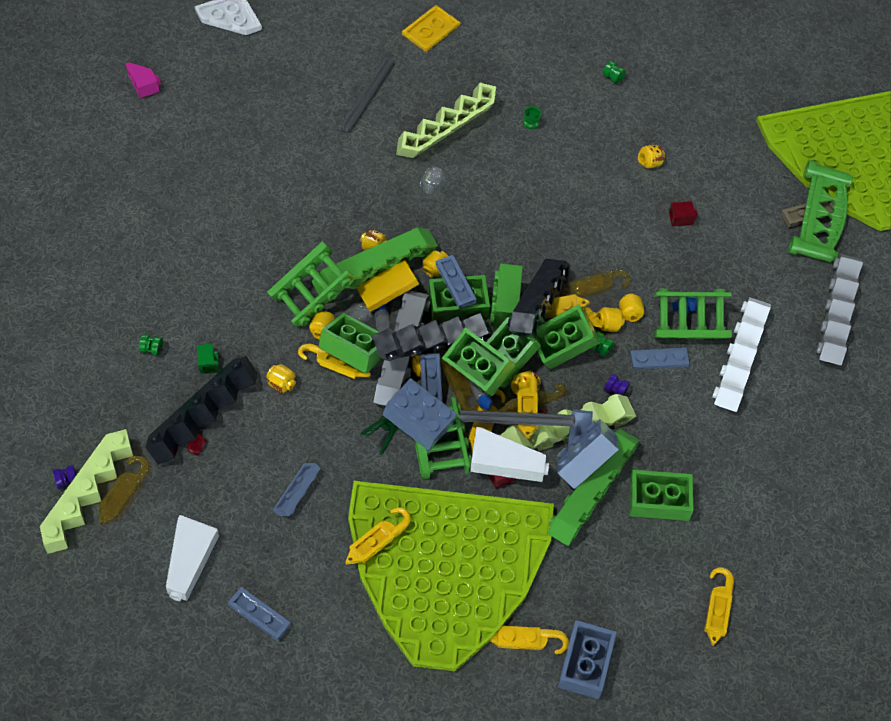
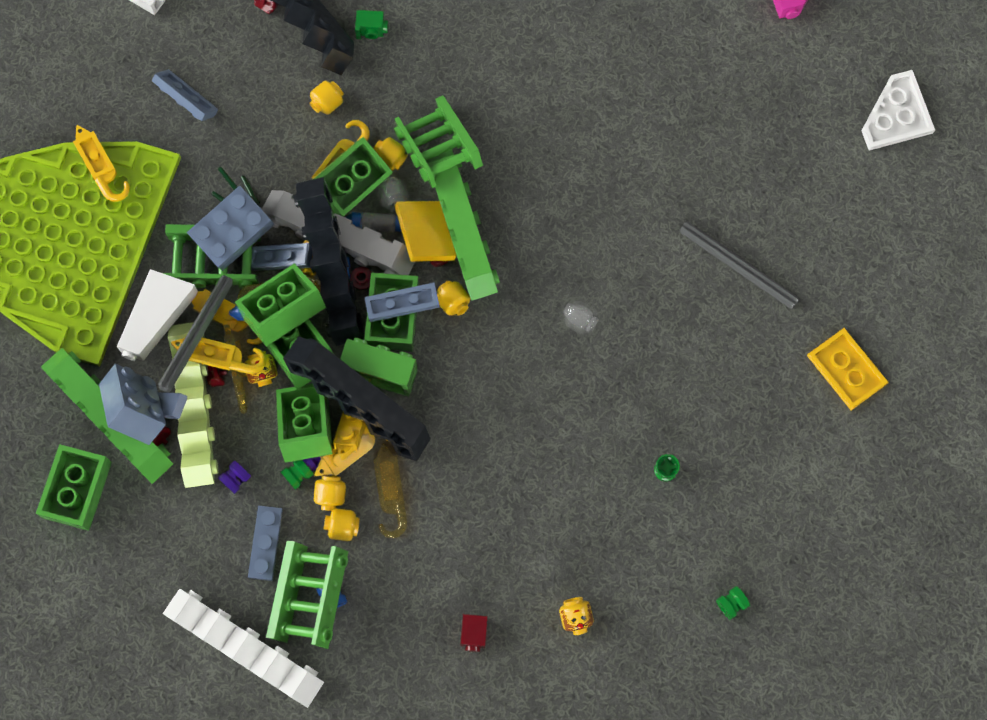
camera: 105 degrees right, 15 degrees up
(259, 614) = (52, 40): sand blue plate -> none
(371, 239) = (496, 229): yellow head -> none
(446, 121) = (670, 353): yellowish green brick -> none

